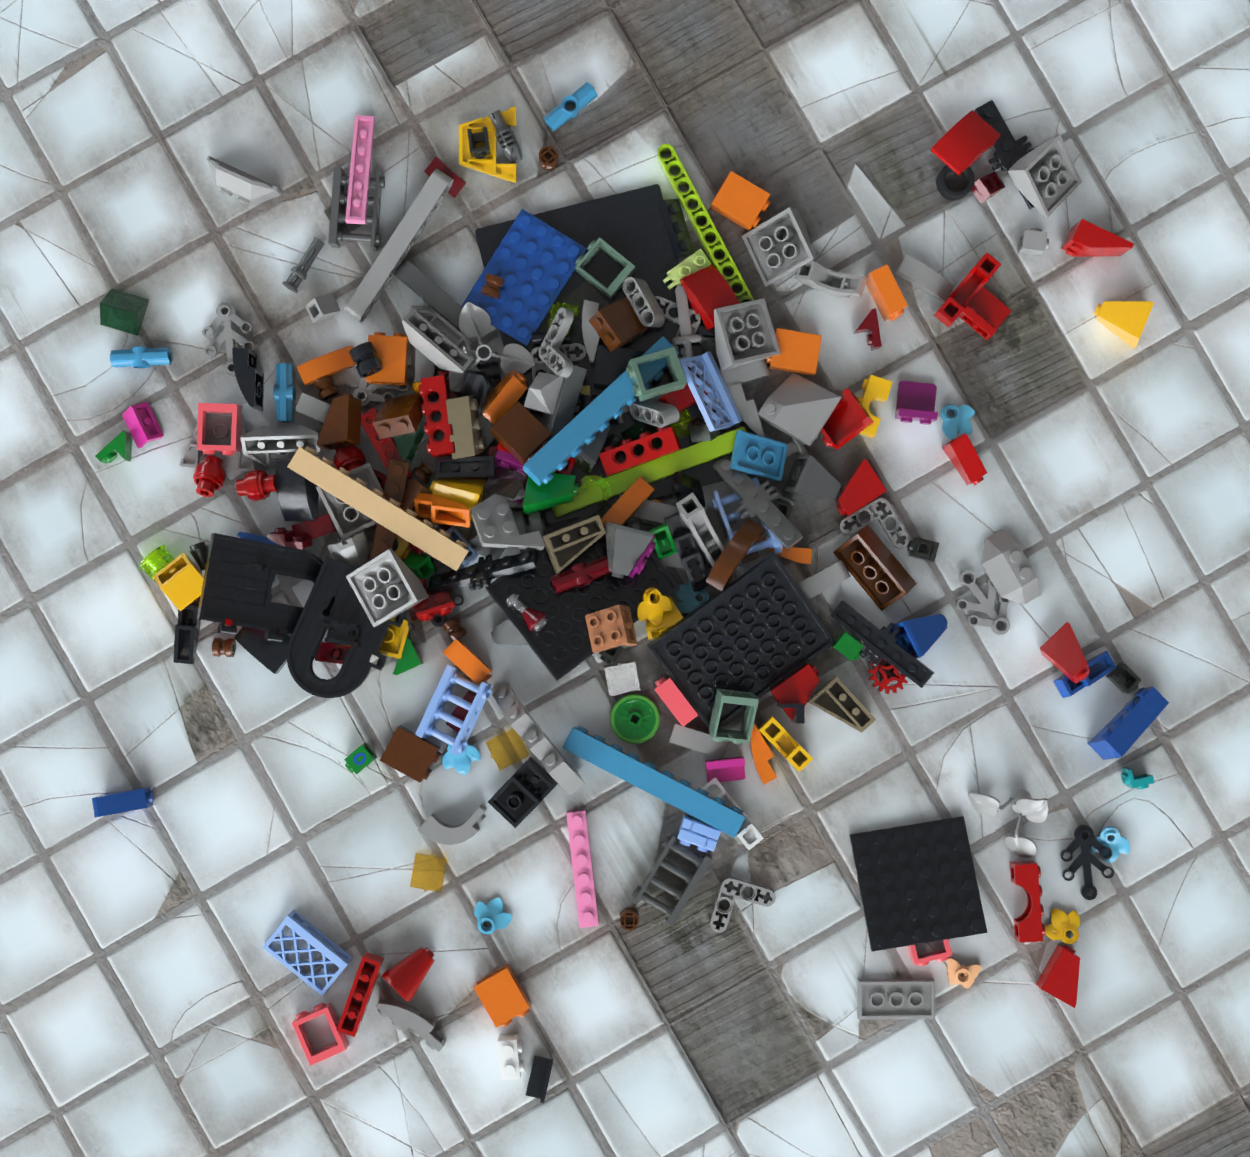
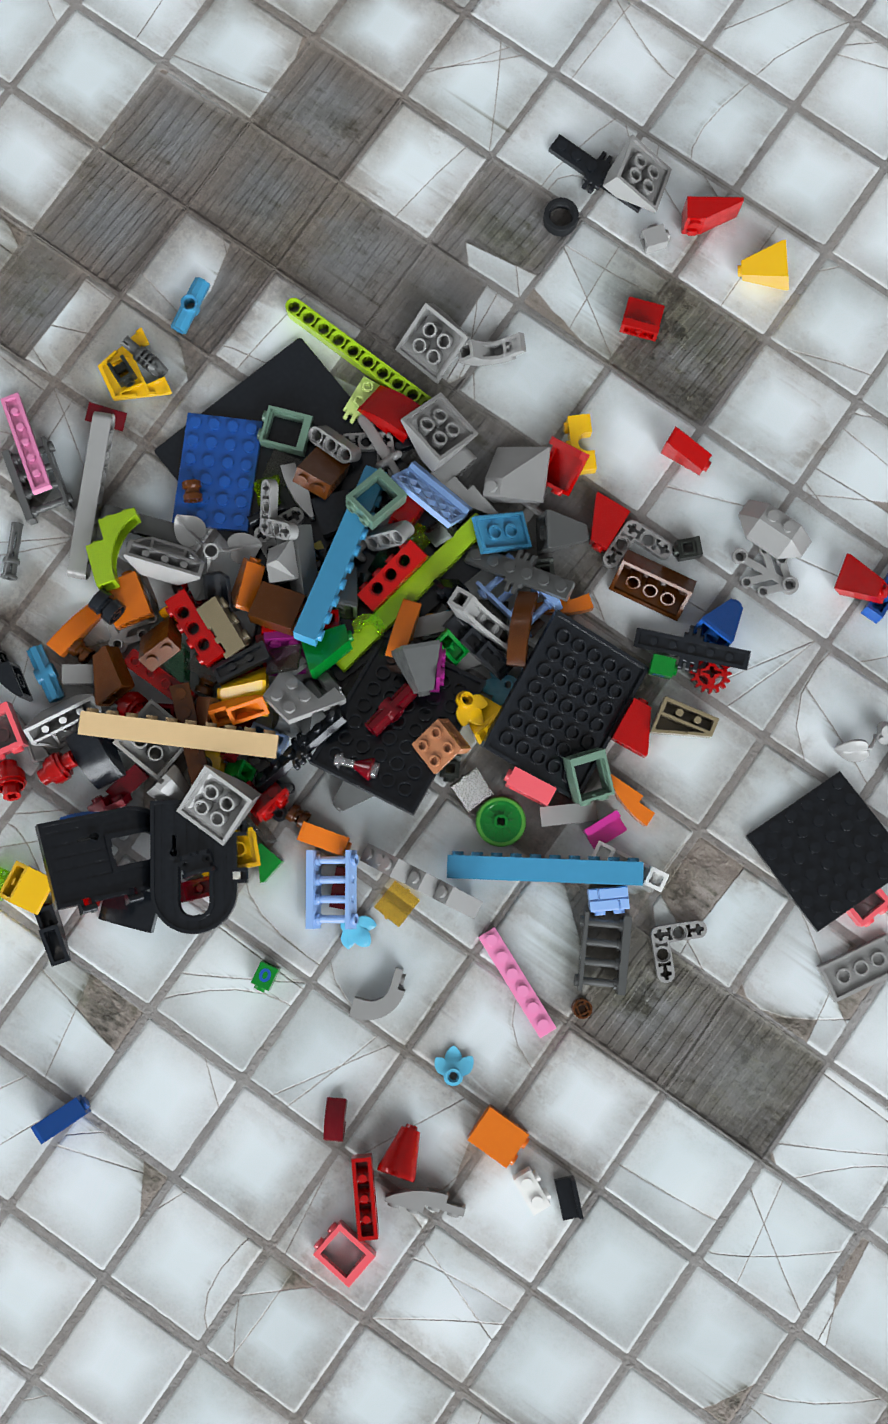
camera: 20 degrees left, 5 degrees down
(200, 553) = (33, 855): pearl dark grey cone -> none
(223, 647) = (92, 931): reddish brown wheel -> none
(319, 942) = (303, 1165): light blue fence -> none
(322, 308) = (47, 581): light grey brick -> none
(364, 914) = (335, 1119): none -> dark red slope
(386, 307) = (104, 553): none -> lime arch
(411, 754) = (310, 949): reddish brown brick -> none
(428, 872) = (376, 1053): clear yellow piece -> none
(491, 369) = (224, 565): black piece -> none
(522, 792) = (429, 937): black slope -> none
(551, 160) = (193, 362): reddish brown wheel -> none
(570, 542) = (368, 683): dark tan wedge -> none
(676, 227) = (334, 367): black plate -> none
(741, 201) = (380, 319): orange brick -> none
(785, 743) = (649, 781): yellow arch -> none
(797, 710) = (644, 741): black panel -> none
(798, 352) = (493, 426): orange brick -> none
(823, 579) = (612, 616): light grey beam -> none
(871, 325) = (547, 374): dark red slope -> none
(886, 293) = (546, 339): orange brick -> none
(916, 402) = (619, 423): magenta bracket -> none
(924, 278) = (574, 312): light grey slope -> none
(959, 422) = (665, 422): medium azure plate -> none
(965, 142) = (554, 179): red slope -> none
(967, 289) = (616, 304): red arch -> none
(987, 187) = (591, 210): dark red slope -> none

